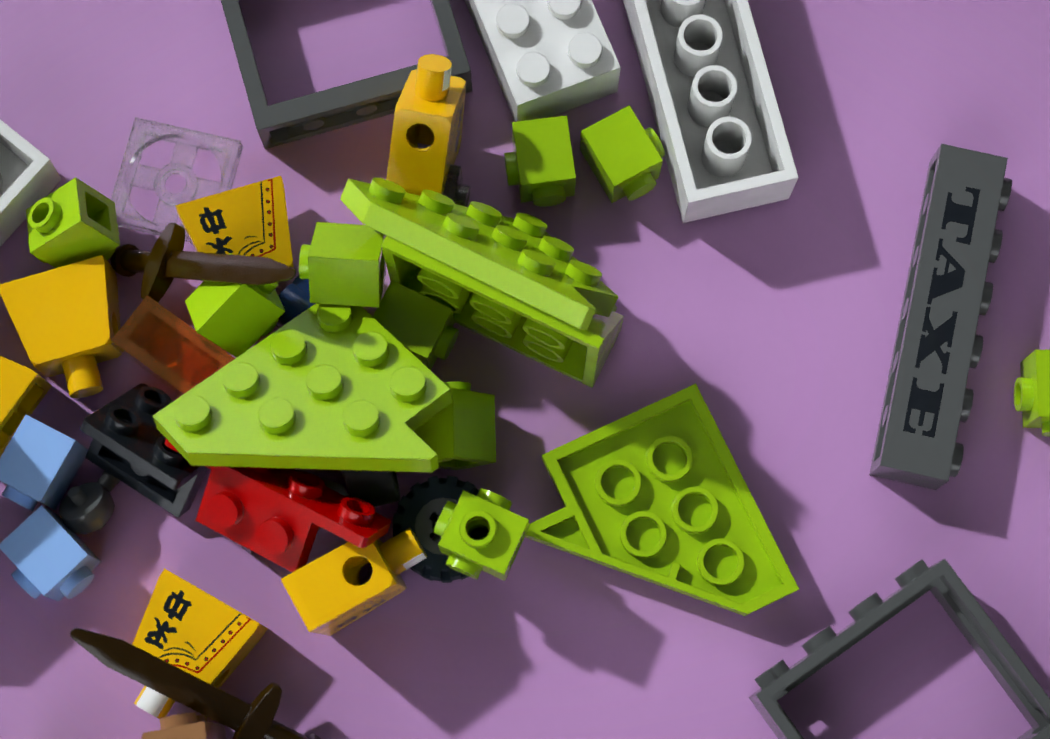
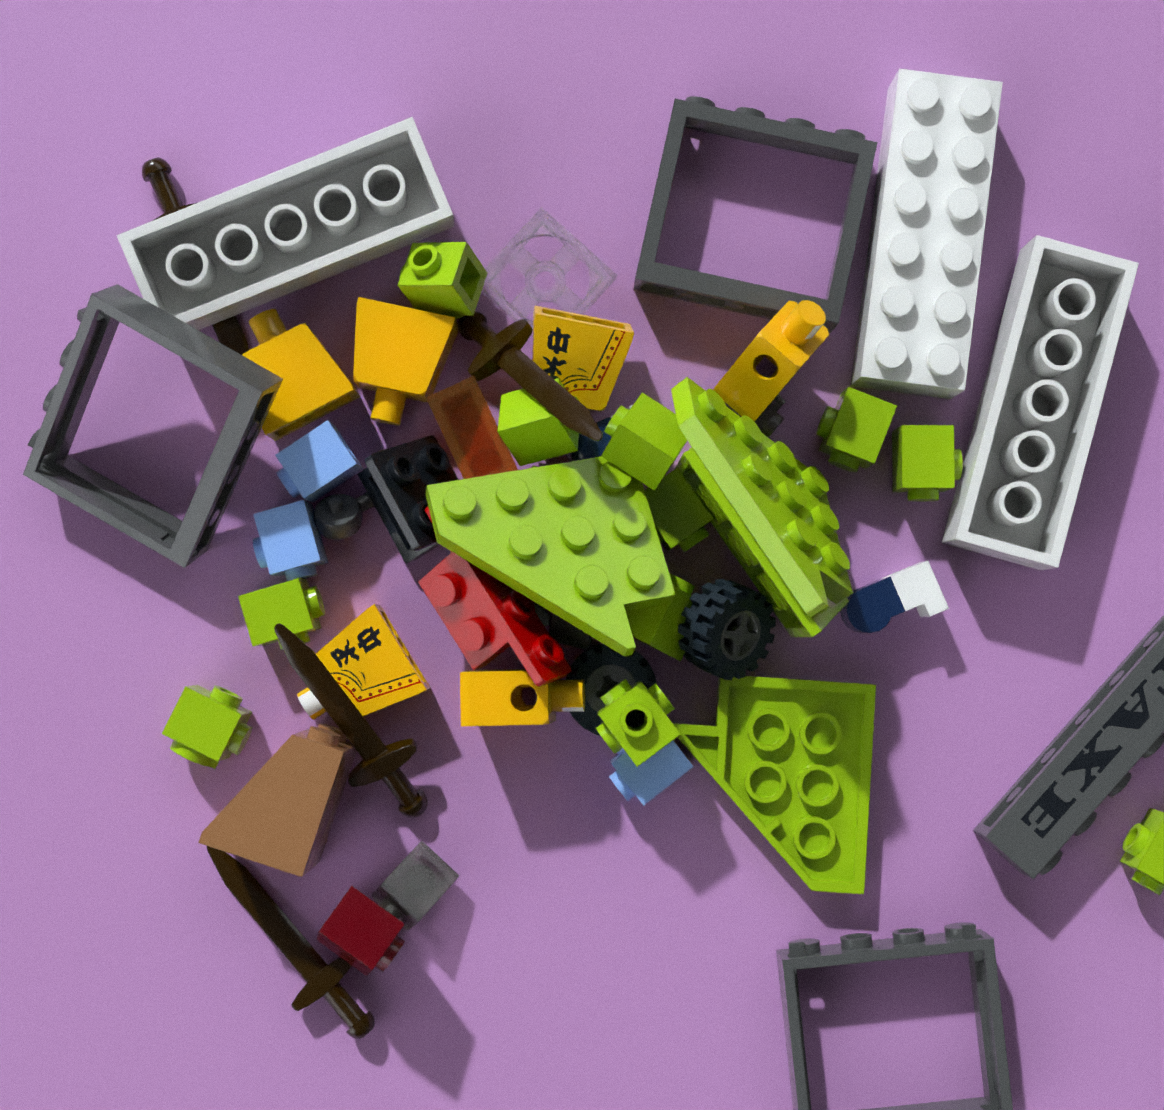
camera: 30 degrees right, 10 degrees up
(75, 609) = (285, 603): none -> lime brick
(523, 406) = (726, 629): none -> black wheel
(526, 585) = (652, 775): none -> light blue brick
(664, 292) = (875, 603): none -> leg

